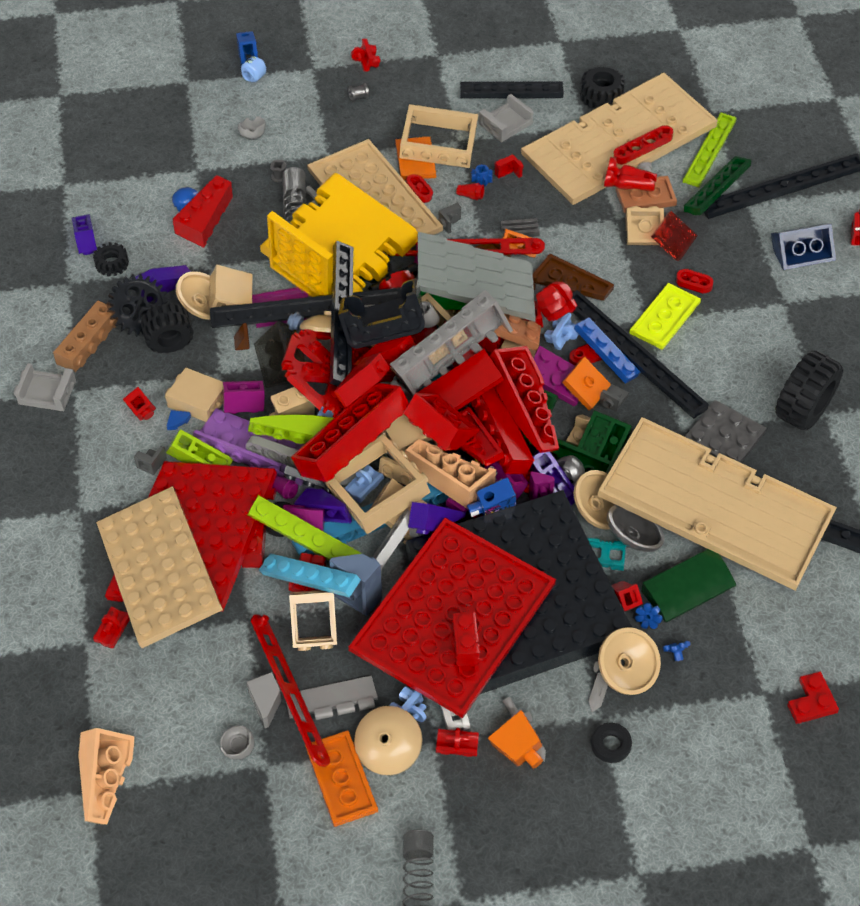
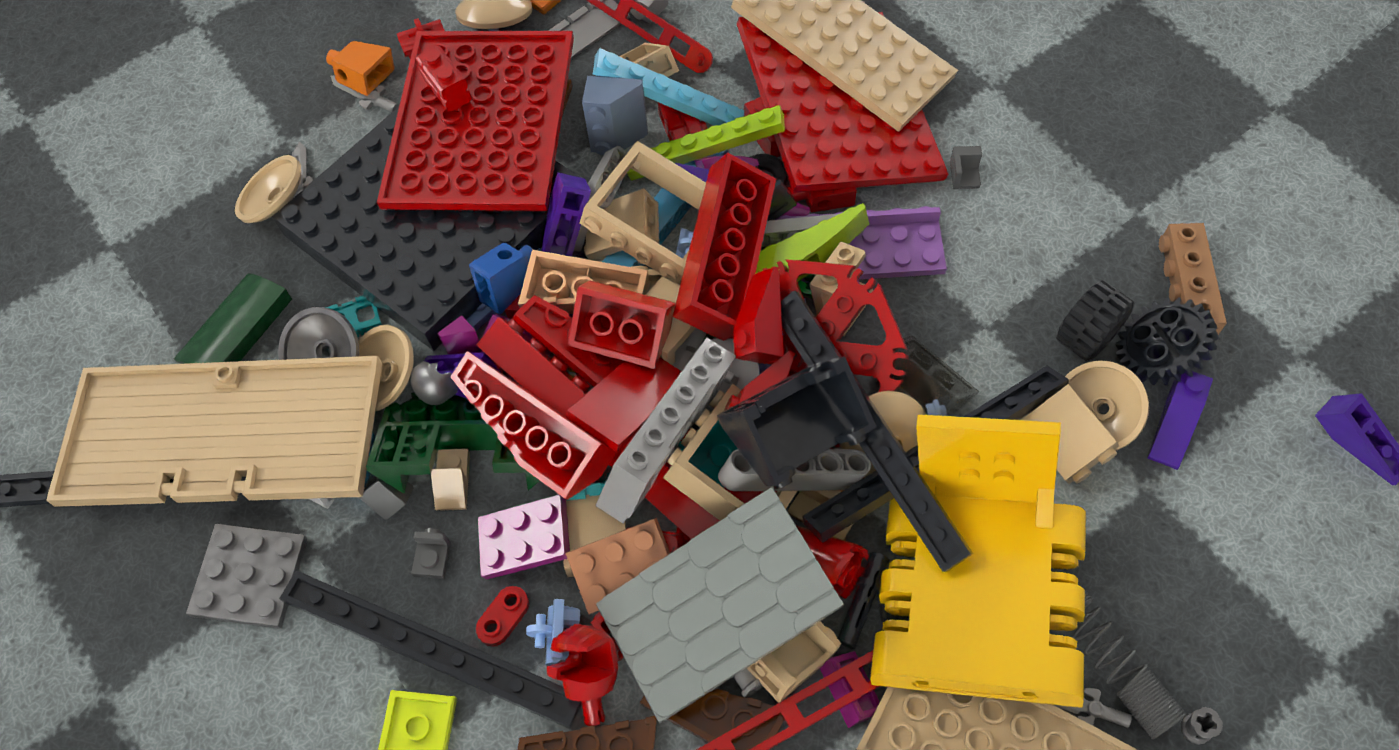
camera: 155 degrees right, 10 degrees up
(44, 388) = (1171, 191): light grey panel -> none
(109, 251) = (1294, 404): black tyre -> none
(140, 404) = (1038, 221): red brick -> none
(177, 419) = (981, 236): blue tile -> none
(183, 197) = (1286, 587): blue hair -> none
(192, 450) = (928, 189): lime slope -> none
(195, 394) = (984, 270): tan brick -> none
(204, 211) = (1237, 569): red wedge -> none
(241, 338) = (993, 383): reddish brown slope -> none
(243, 396) = (920, 285): magenta brick -> none
(586, 383) = (474, 545): orange plate -> none
(605, 754) = (271, 129): black tyre -> none
(607, 350) = (470, 623): blue plate -> none
(627, 594) = (303, 264): red brick -> none
(648, 616) = (268, 264): blue plant -> none
(676, 649) = (223, 241): blue plant -> none
(809, 390) = (111, 667): black tyre -> none
(818, 700) = (41, 262): red plate -> none

